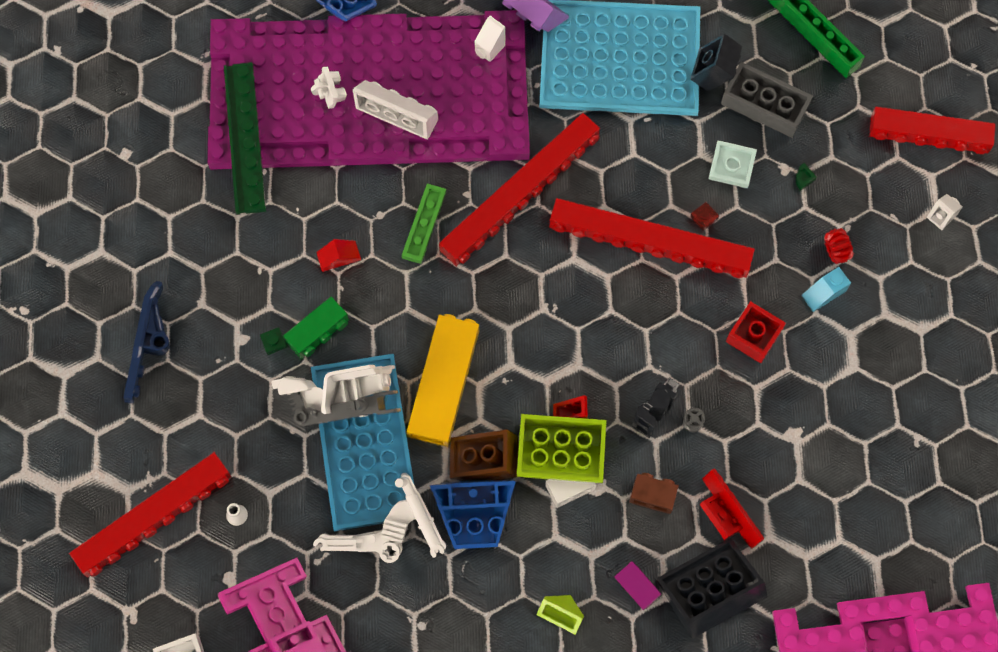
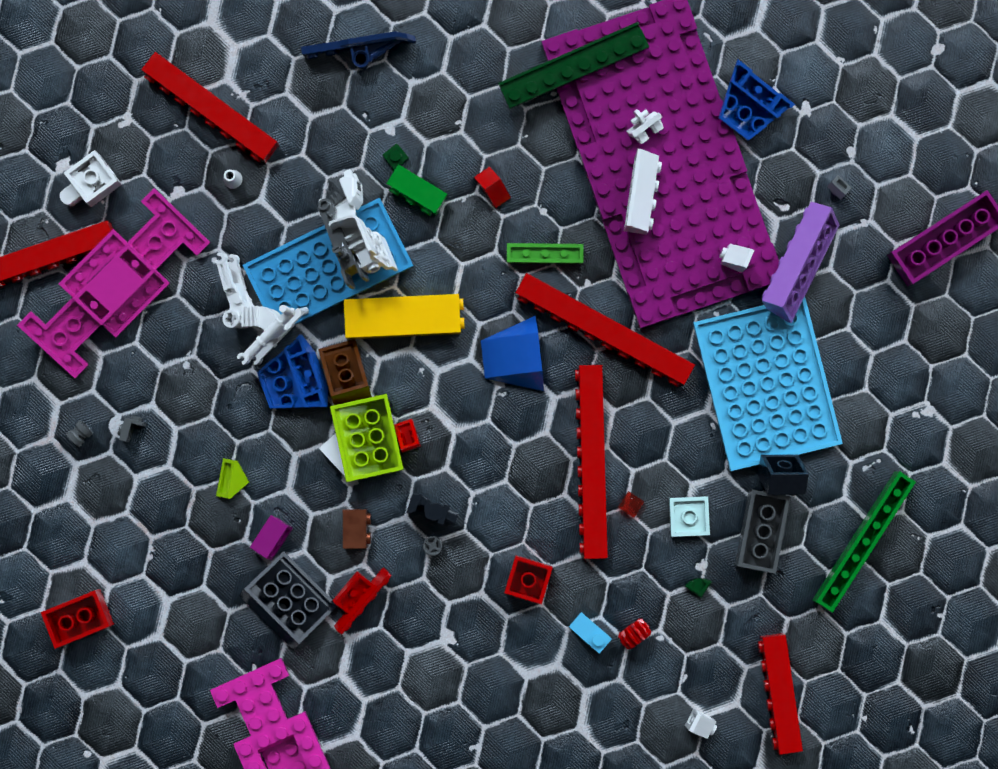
camera: 70 degrees right, 15 degrees up
(519, 281) = (514, 356): none -> blue wedge

